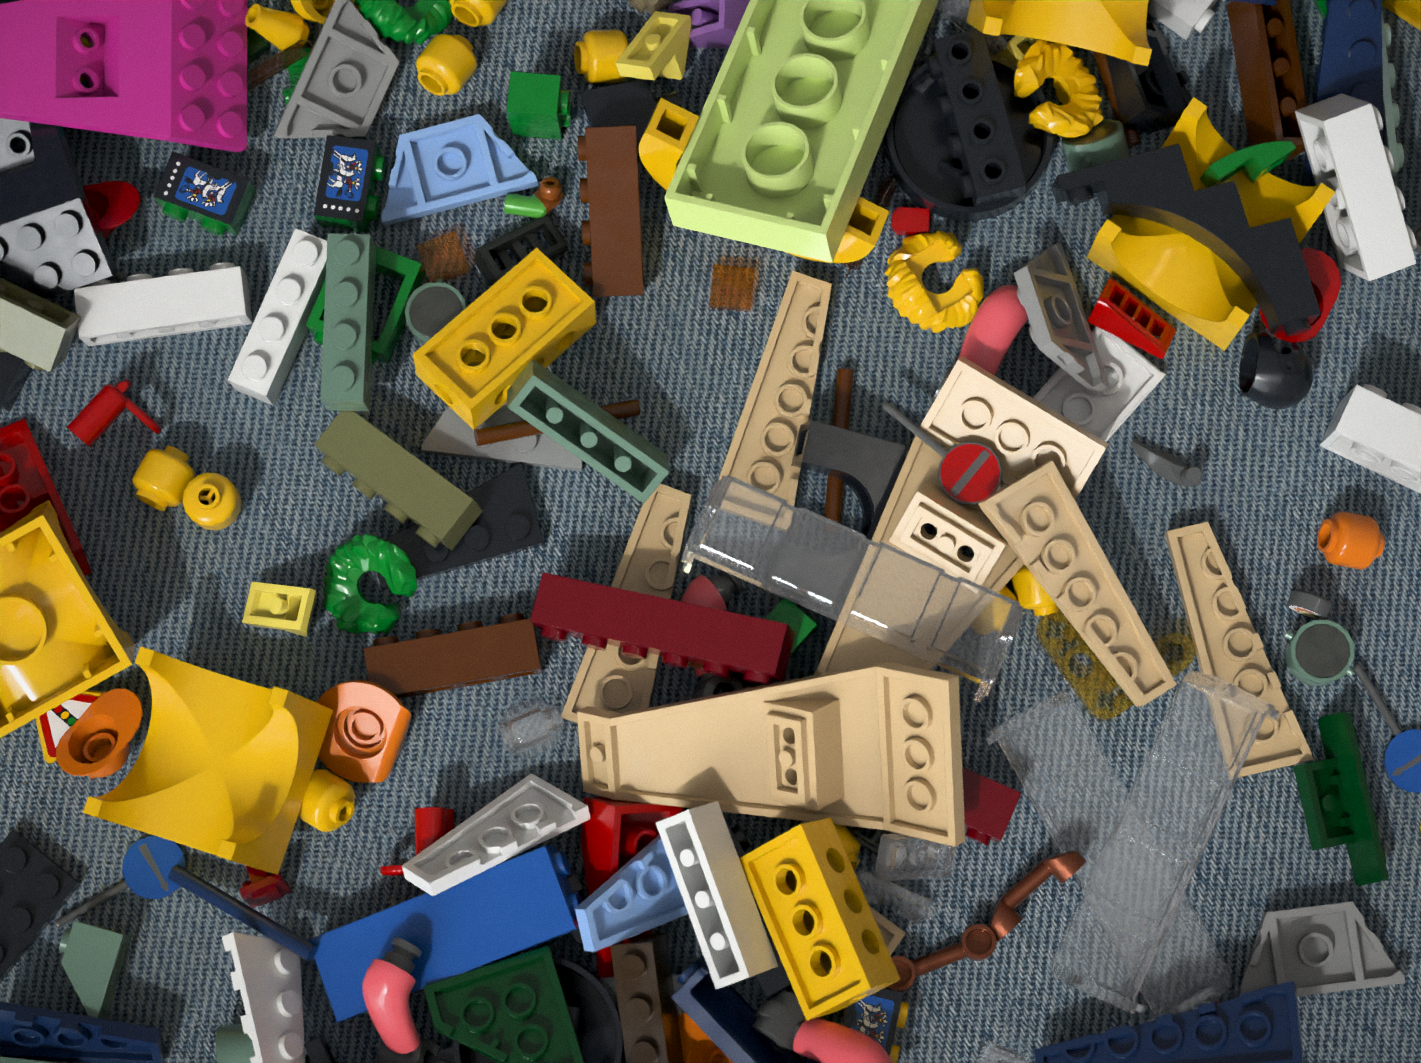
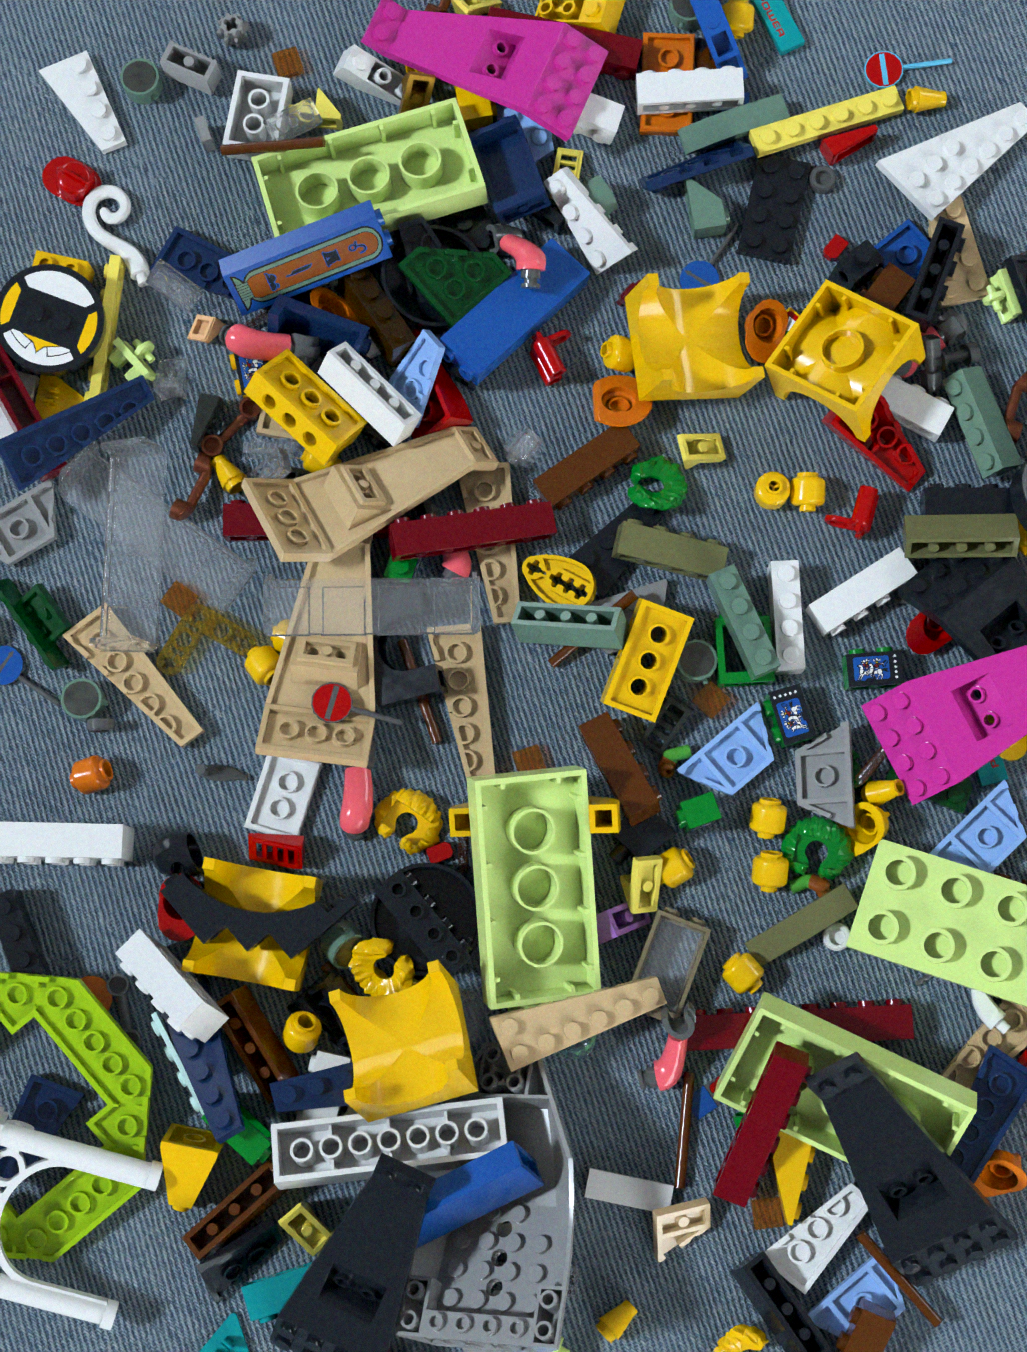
camera: 155 degrees right, 0 degrees up
(243, 912) = (632, 272): dark blue bar -> none
(500, 830) = (509, 378): white wing -> none
(548, 517) = (555, 567): none -> yellow piece
(966, 995) = (206, 415): none -> pearl dark grey slope
(973, 888) = (228, 474): none -> yellow cone
(1059, 318) = (322, 827): light grey wing -> none
(1067, 561) = (256, 678): tan wing -> none
(1122, 739) = (179, 598): none -> clear orange tile
(1202, 63) = (301, 1032): none -> yellow head
(1253, 160) = (240, 976): green slope -> none

